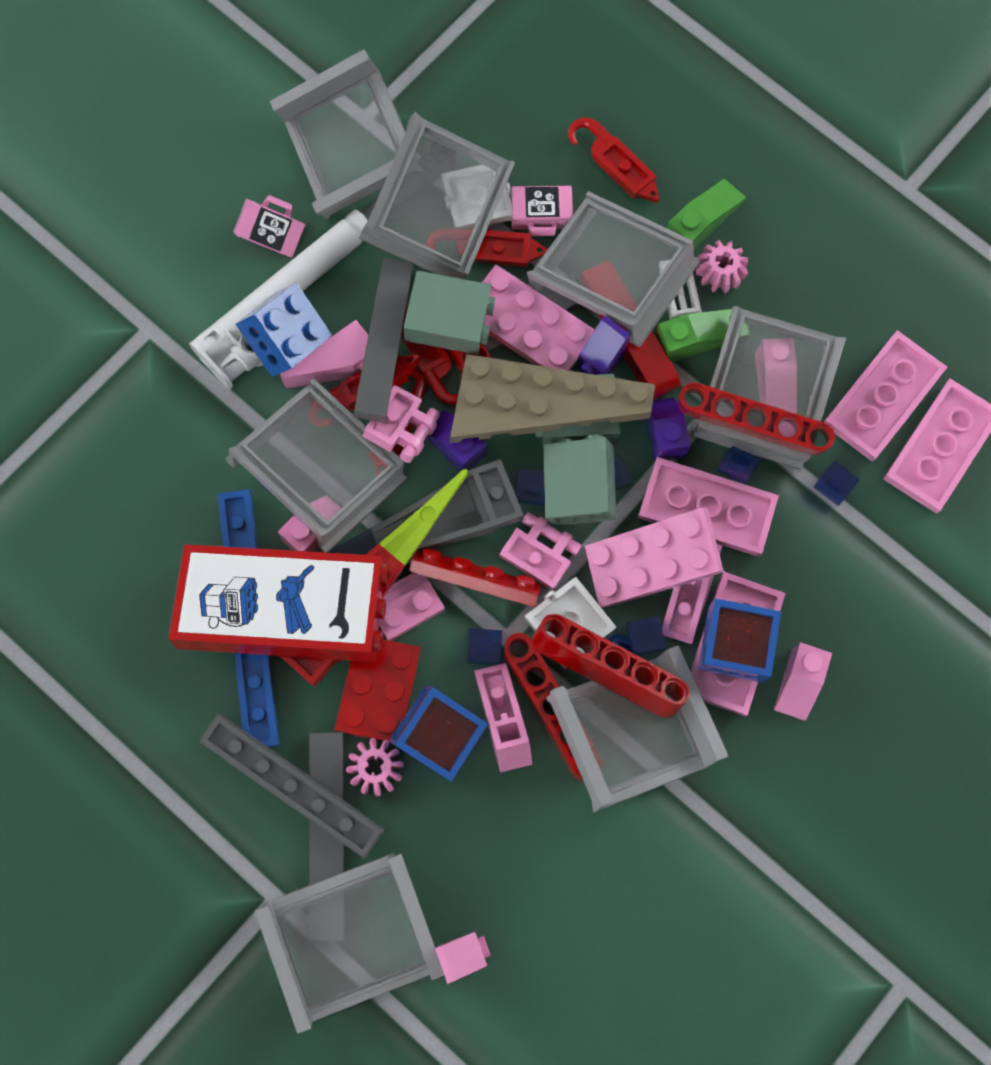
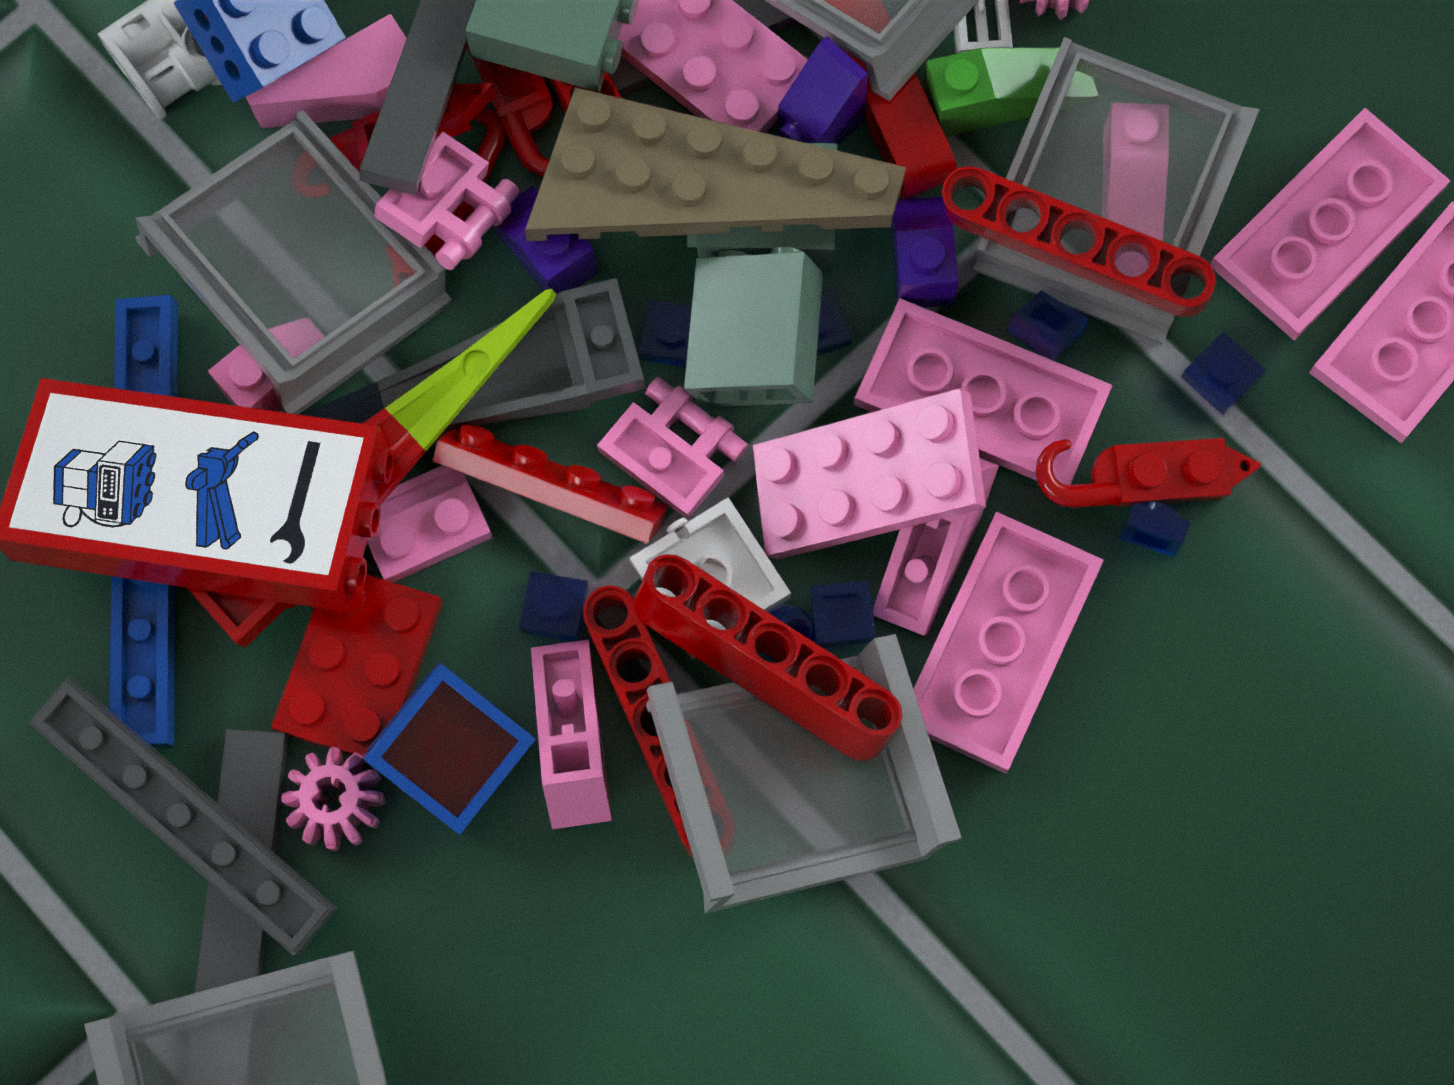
camera: 15 degrees right, 0 degrees up
(739, 640) = (1004, 634): piece -> none
(802, 680) = (1116, 719): bright pink slope -> none
(803, 543) = (1149, 473): none -> red plate
(811, 572) = (1155, 527): none -> clear blue plate

